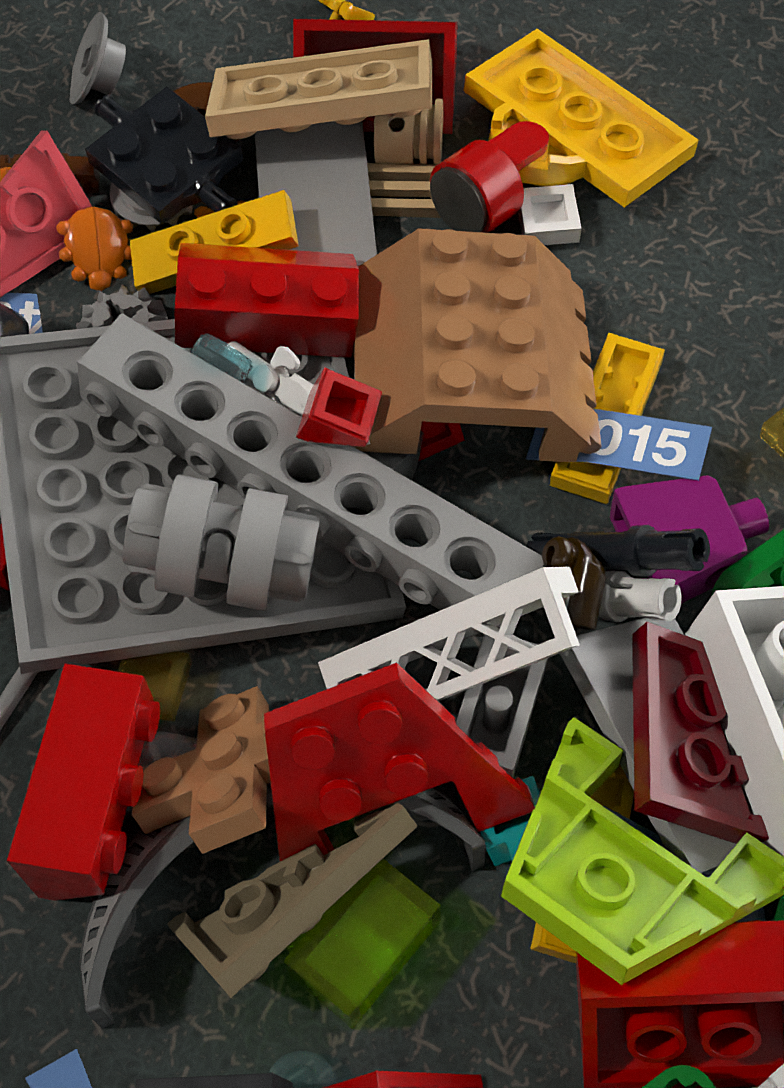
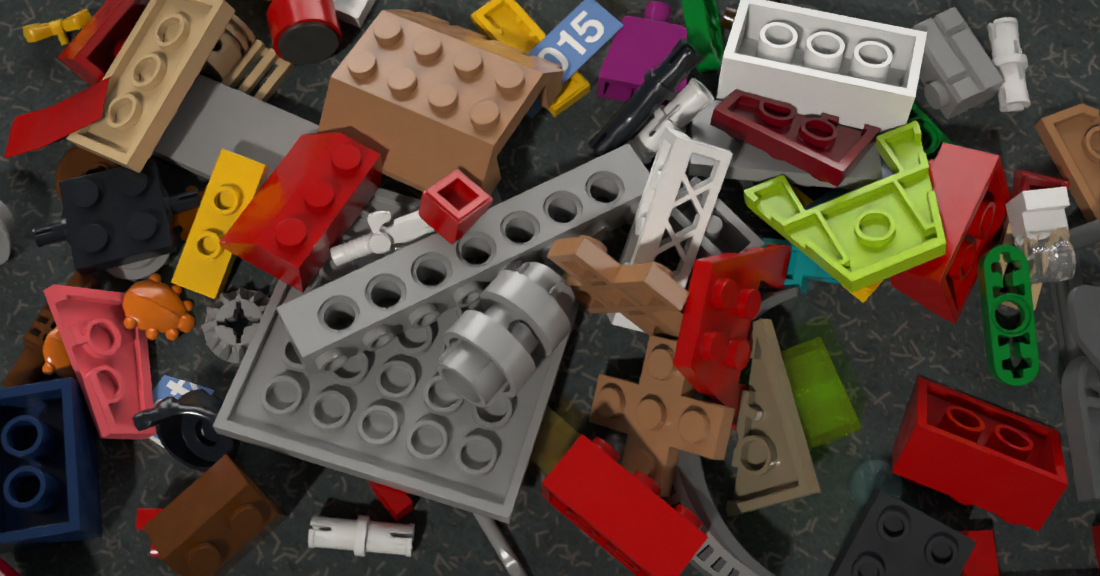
camera: 65 degrees left, 10 degrees up
(222, 356) = (351, 260): clear light blue tile -> none
(233, 53) = (52, 123): none -> red sticker
(342, 612) = (638, 291): none -> medium nougat plate
(588, 576) = (646, 128): dark brown arm -> none

